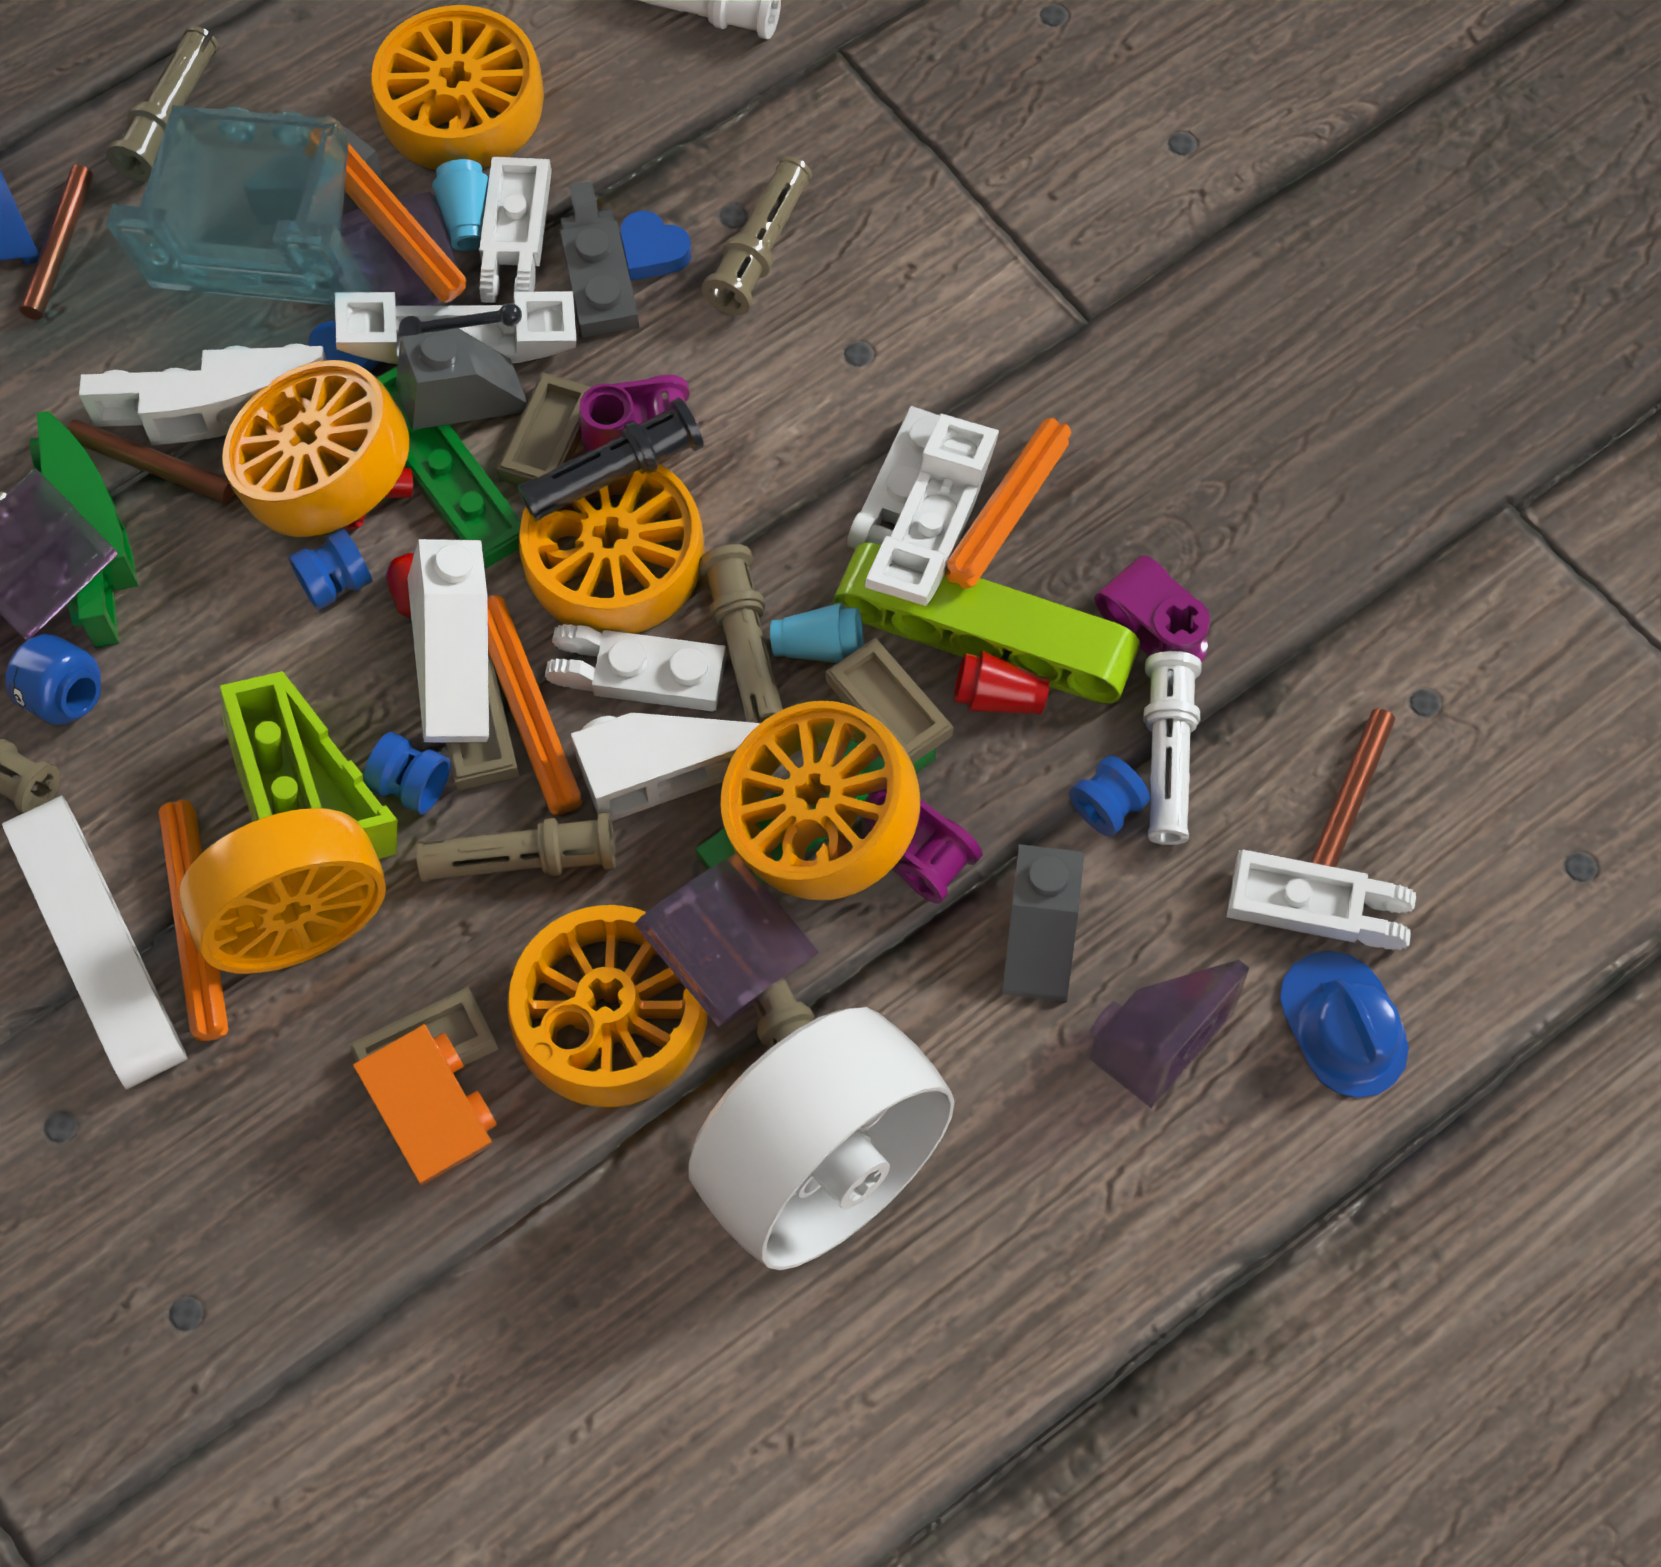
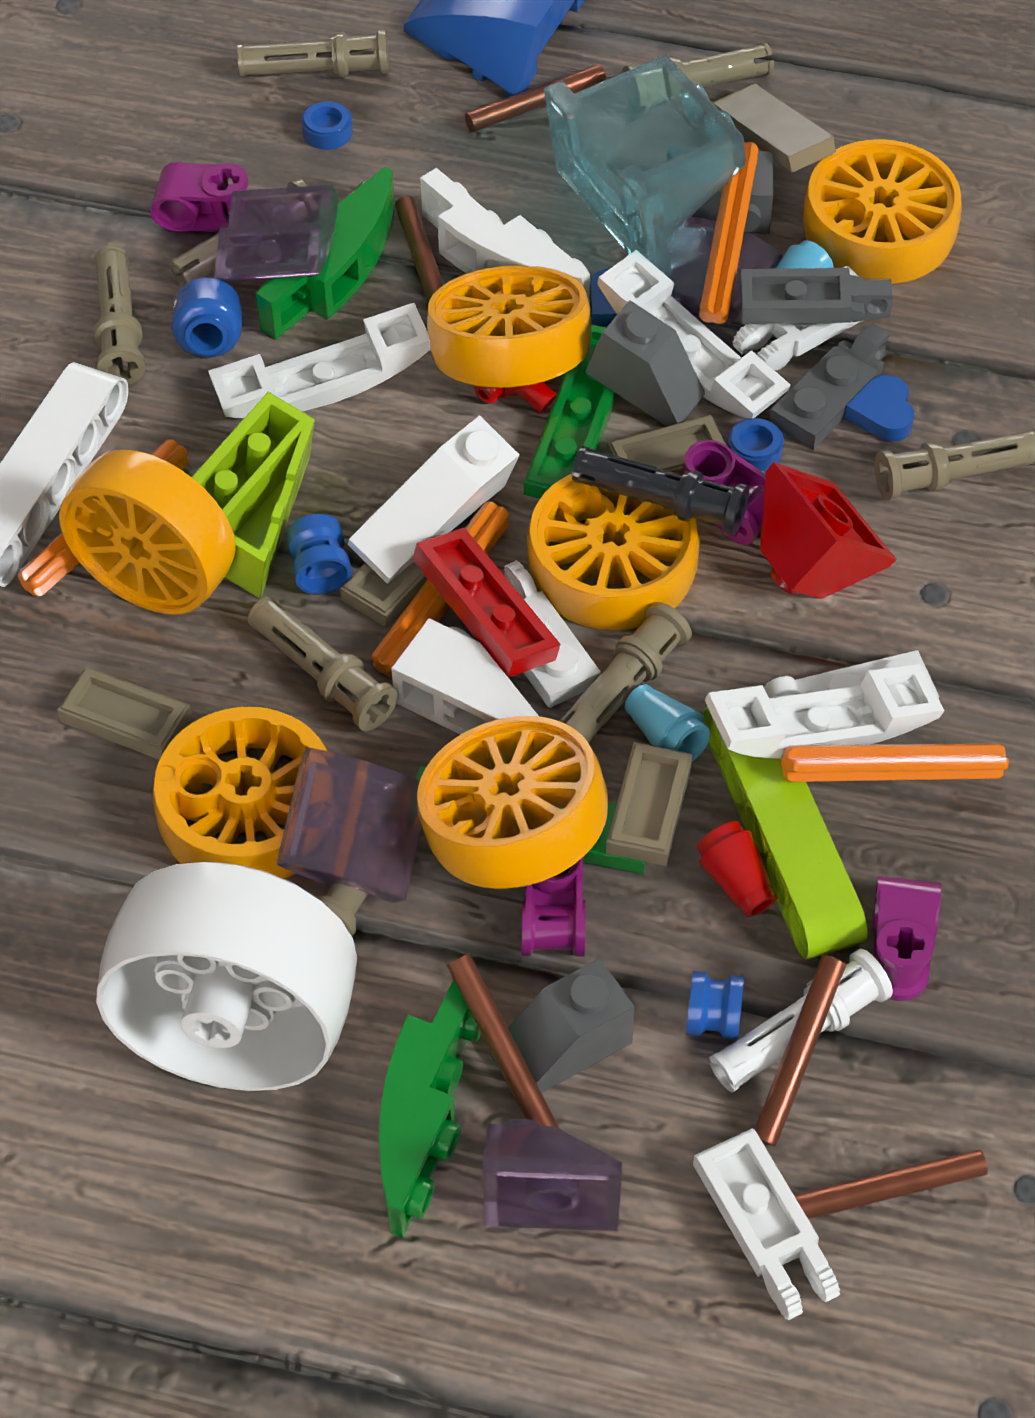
camera: 50 degrees right, 10 degrees down
(207, 628) = (330, 373): none -> white slope
(304, 88) = (777, 127): none -> dark tan tile
(330, 569) = (432, 404): blue wheel -> none
(425, 1103) = (70, 734): orange brick -> none
(508, 207) = (812, 296): none -> dark grey hinge
(509, 315) = (726, 357): black hinge -> none
(592, 678) = (486, 602): none -> red plate
(599, 361) = (757, 442): none -> blue tile
(741, 390) = (816, 535): none -> red slope
(1024, 975) = (500, 1041): none -> copper bar
(1029, 1093) = (419, 1107): none -> green slope
(1203, 765) = (799, 1049): none -> copper bar
(1344, 1024) = (680, 1320): blue piece -> none

